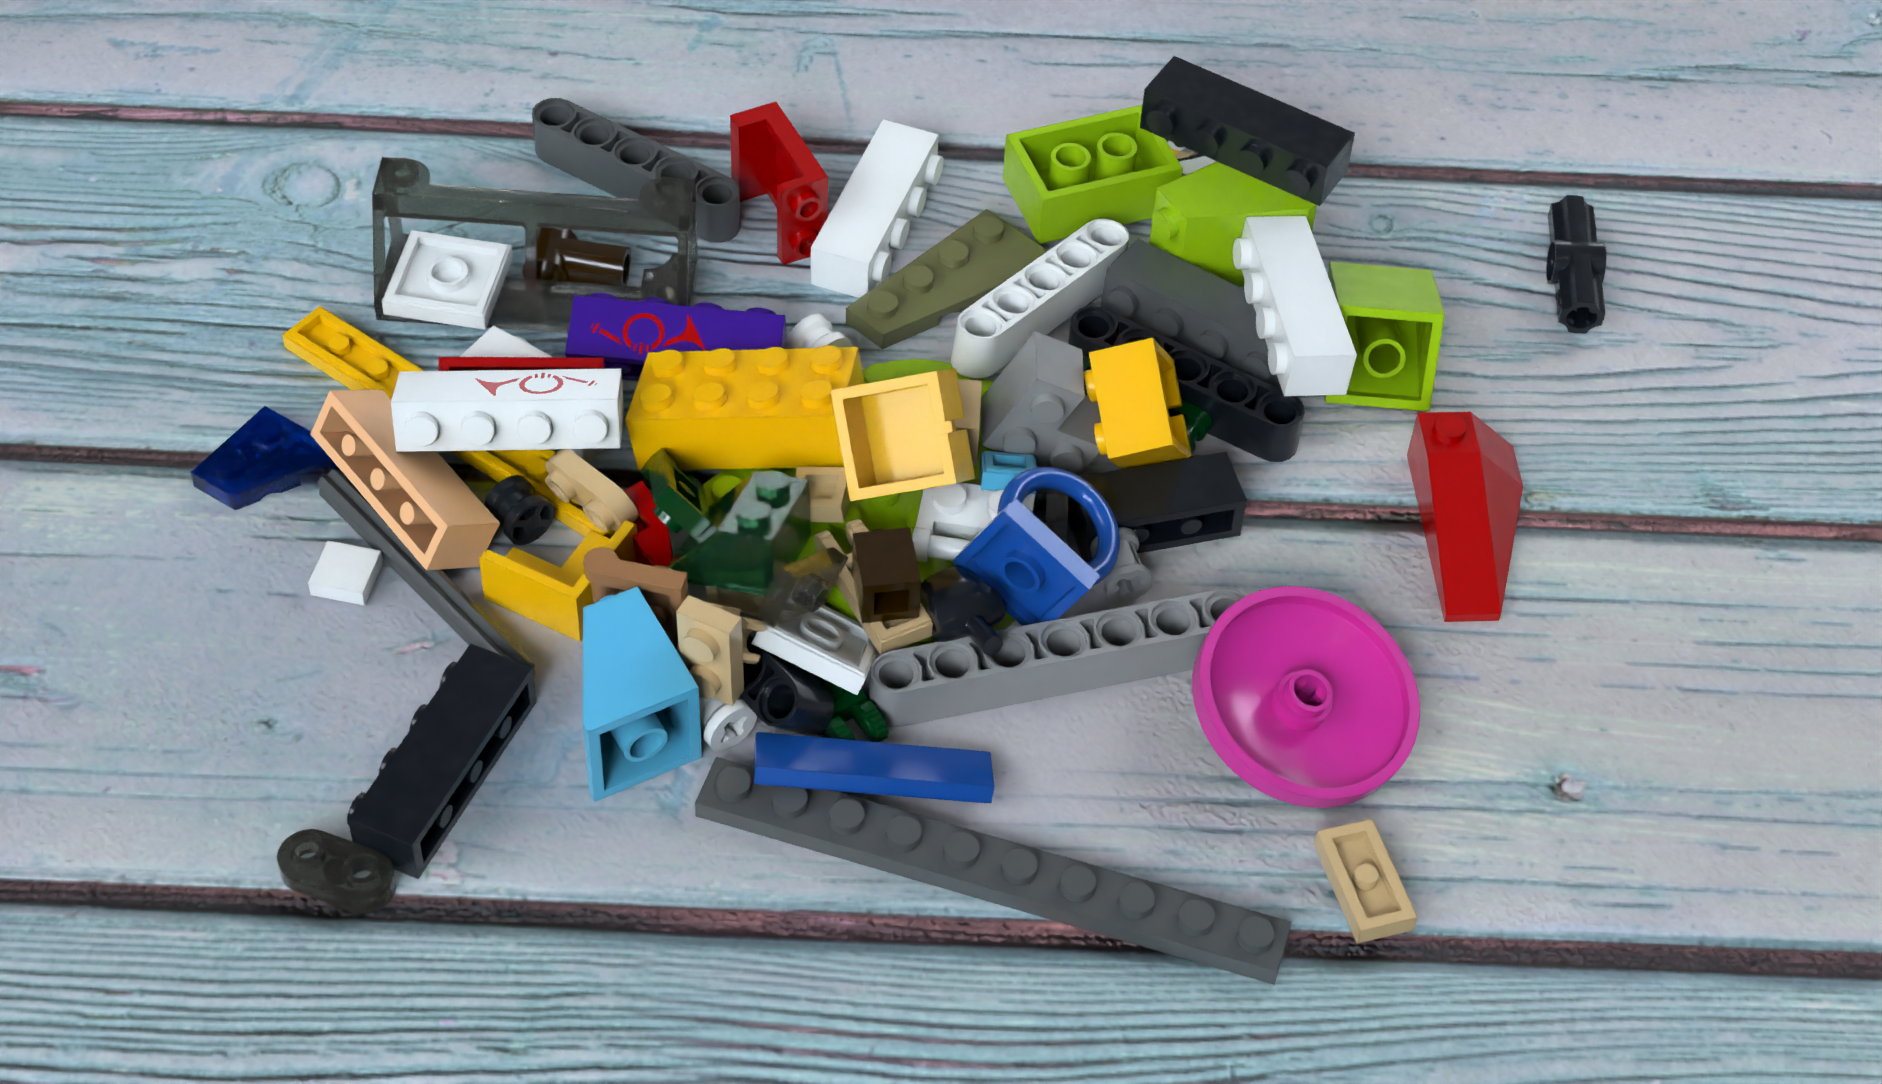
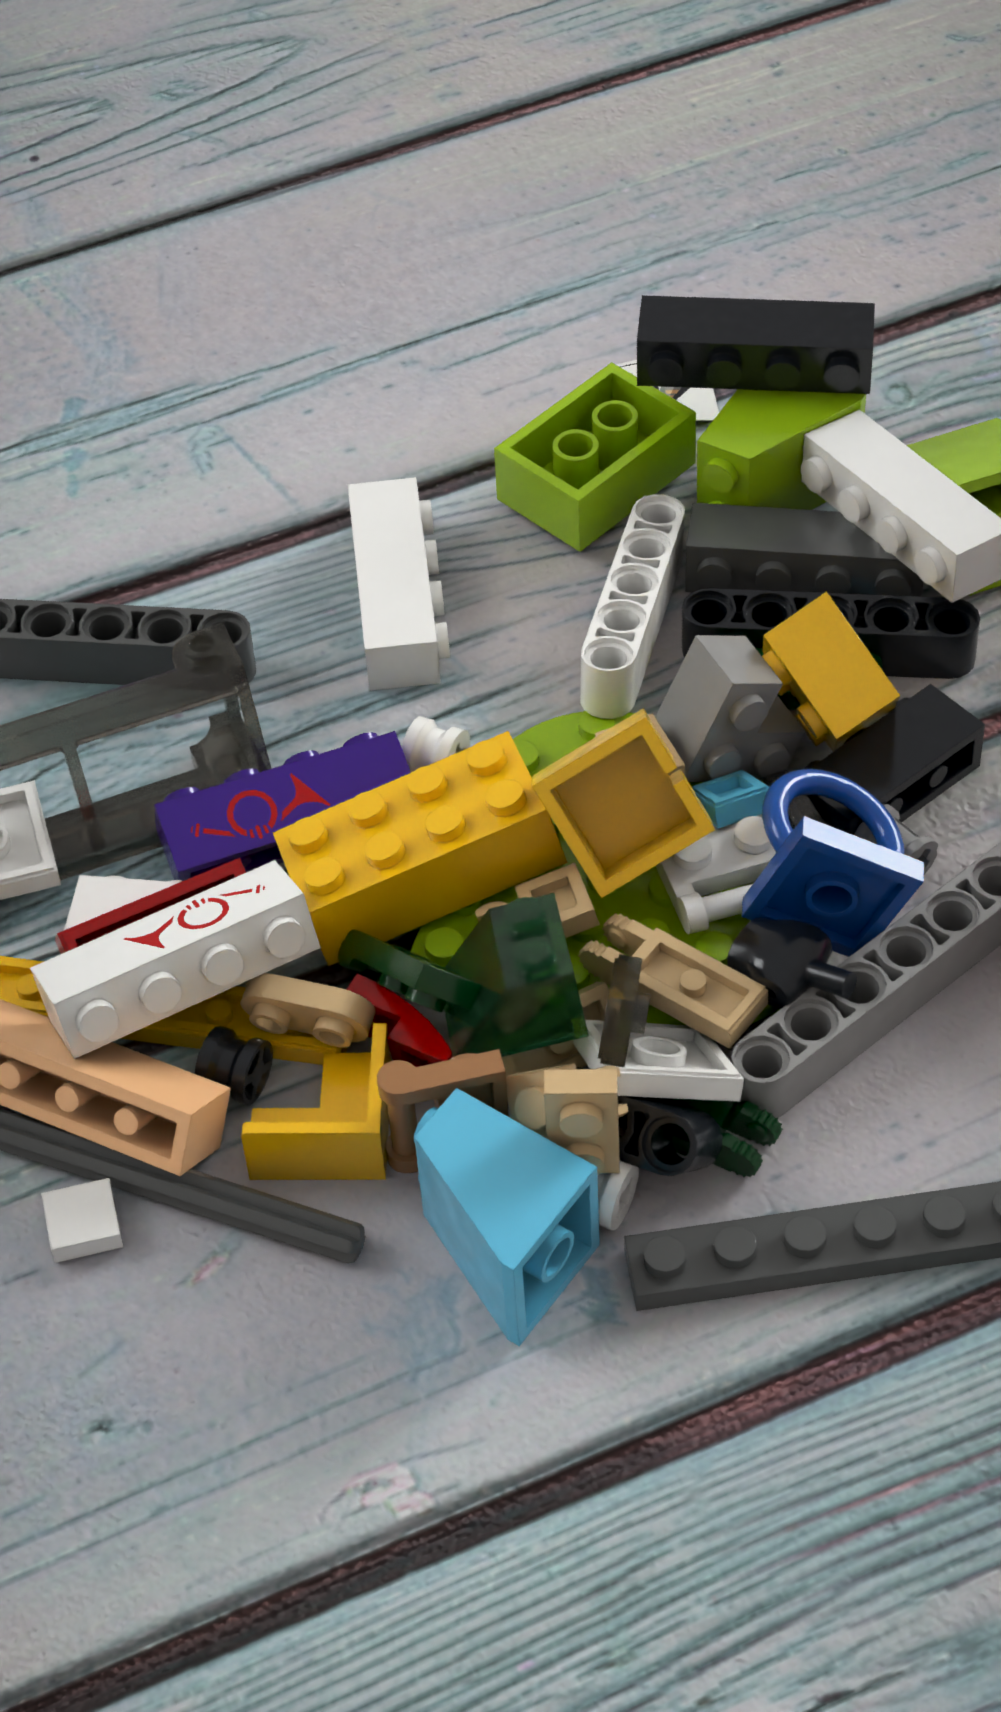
camera: 20 degrees left, 0 degrees up
(332, 869) = (295, 1563): clear smoke plate -> none
(443, 758) = (336, 1379): black brick -> none
(574, 260) = (114, 767): dark brown piece -> none
(775, 161) = (291, 583): red panel -> none
(873, 768) = (796, 1172): blue tile -> none
(886, 575) = (699, 958): dark brown brick -> none
(943, 280) = (515, 623): olive wing -> none

